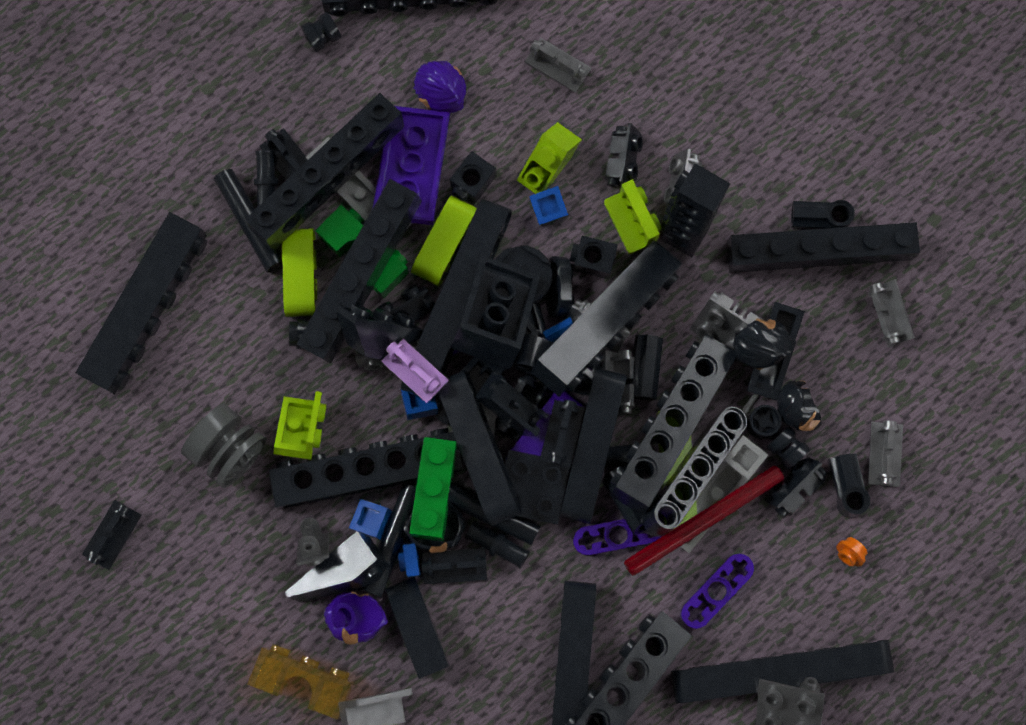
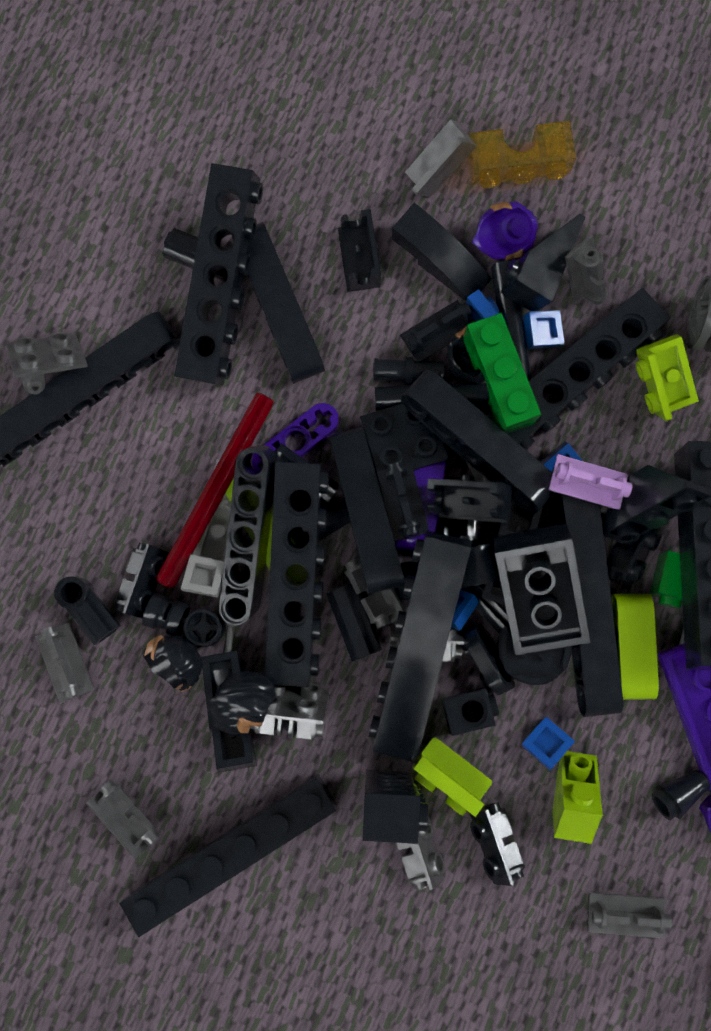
camera: 155 degrees right, 0 degrees up
(472, 166) = (656, 742): black brick -> none
(474, 122) = (679, 795): none -> black cone
(483, 668) = (359, 252): none -> black hinge
(739, 579) = (155, 459): dark purple beam -> none
(818, 214) = (252, 889): black piece -> none
(851, 552) = (54, 543): orange plate -> none

